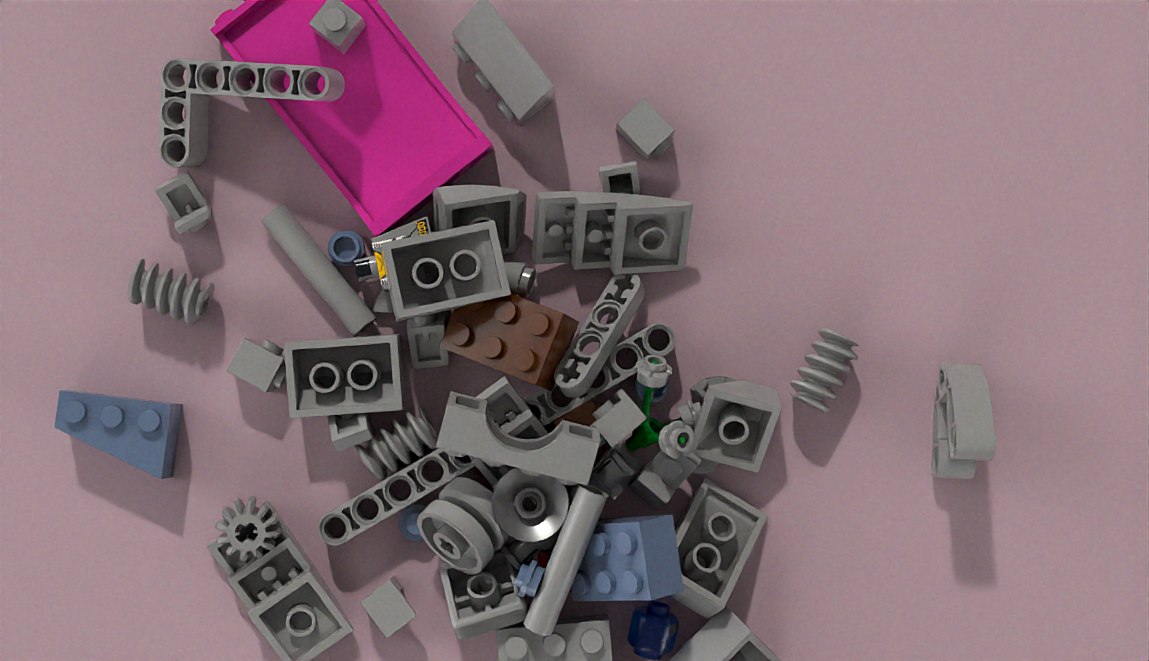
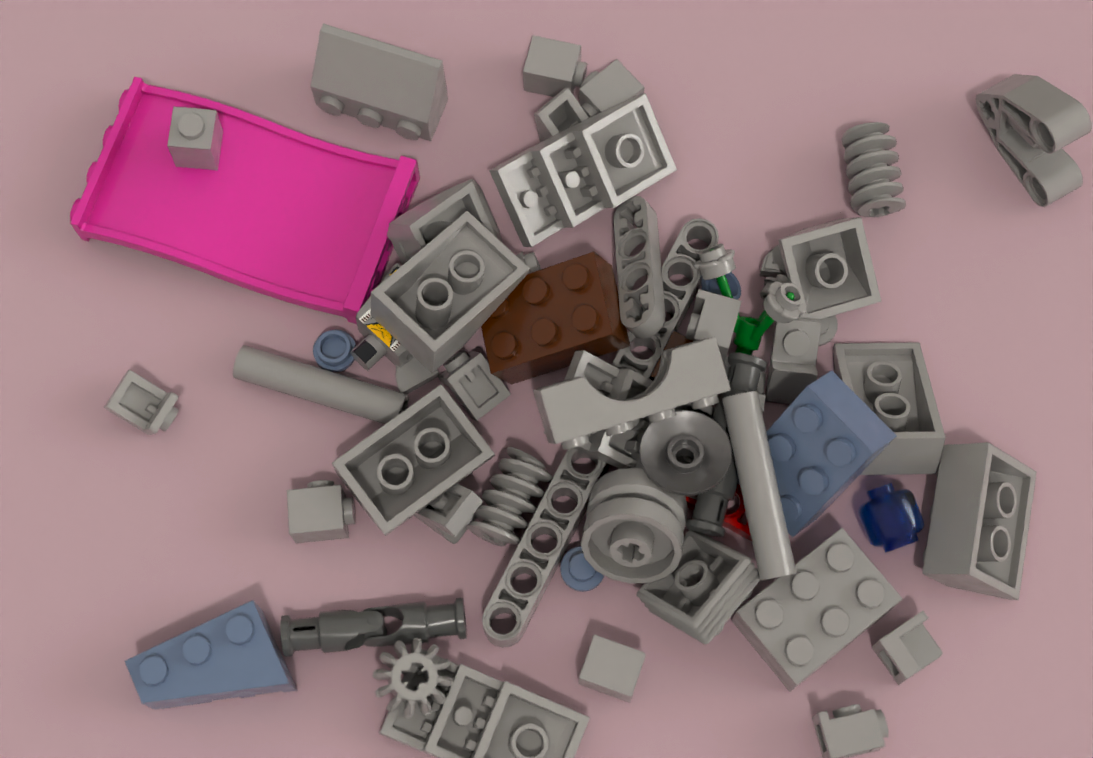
camera: 30 degrees left, 15 degrees down
(169, 294) = (181, 499): light grey piece -> none
(225, 459) = (351, 629): none -> dark grey piece
(235, 81) = (127, 257): light grey beam -> none
(529, 578) = (736, 529): sand blue plate -> none
(671, 179) = (608, 88): none -> light grey brick

